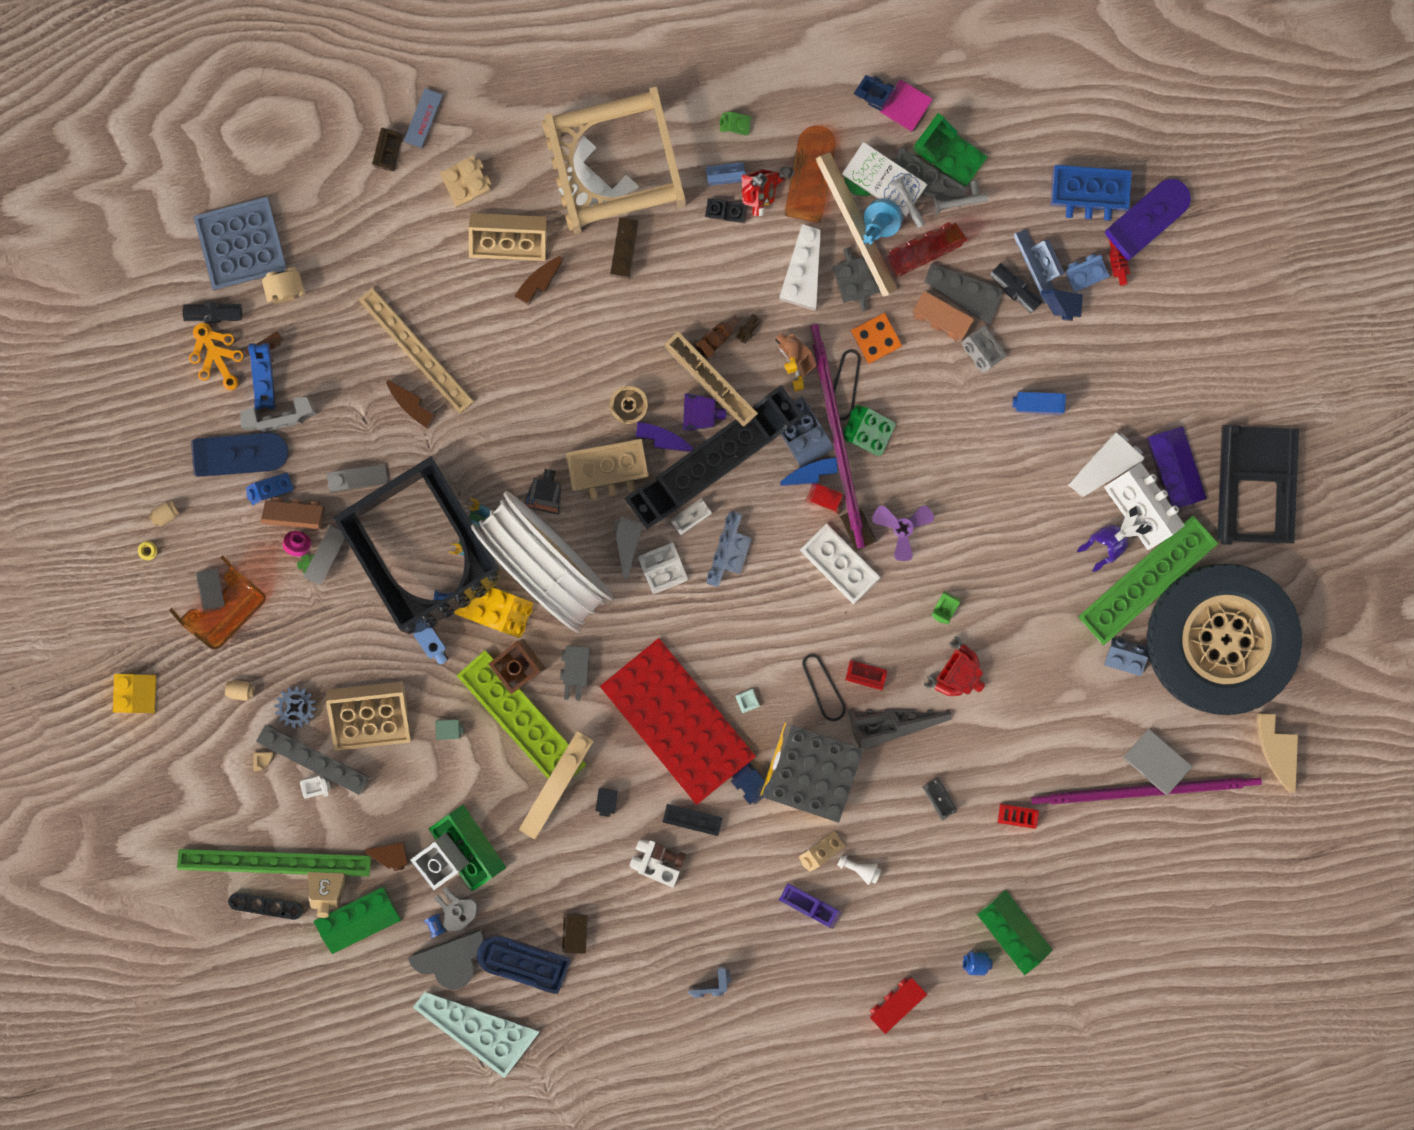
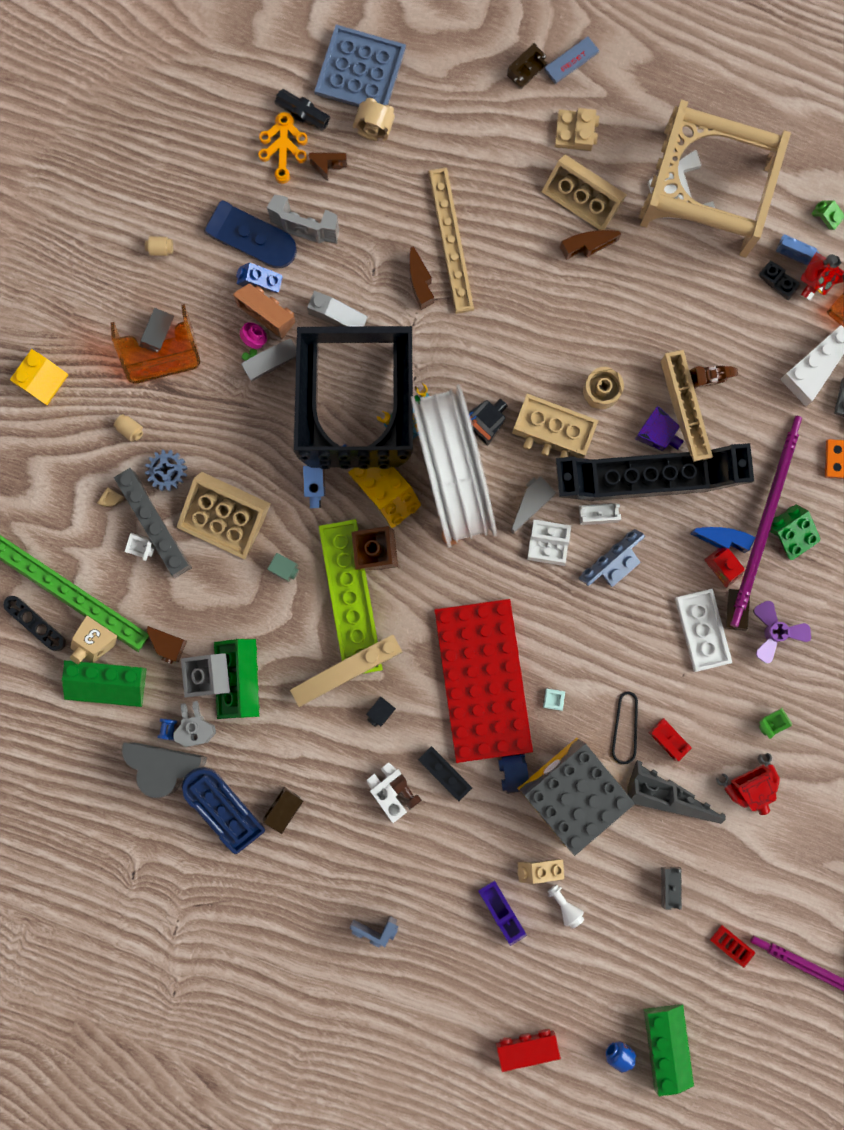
camera: 25 degrees right, 5 degrees down
(141, 550) = (126, 263): light yellow plate -> none
(262, 375) = (311, 181): blue plate -> none
(486, 1036) = (151, 854): light aqua wing -> none
(575, 669) = (423, 582): dark grey hinge -> none
(624, 248) = (676, 258): dark brown brick -> none
(663, 438) = (615, 432): dark purple slope -> none
(747, 330) = (740, 387): dark brown pin -> none
(798, 358) = (772, 431): nougat torso -> none
(806, 437) = (738, 506): sand blue slope -> none
(855, 383) = (796, 497): black piece -> none

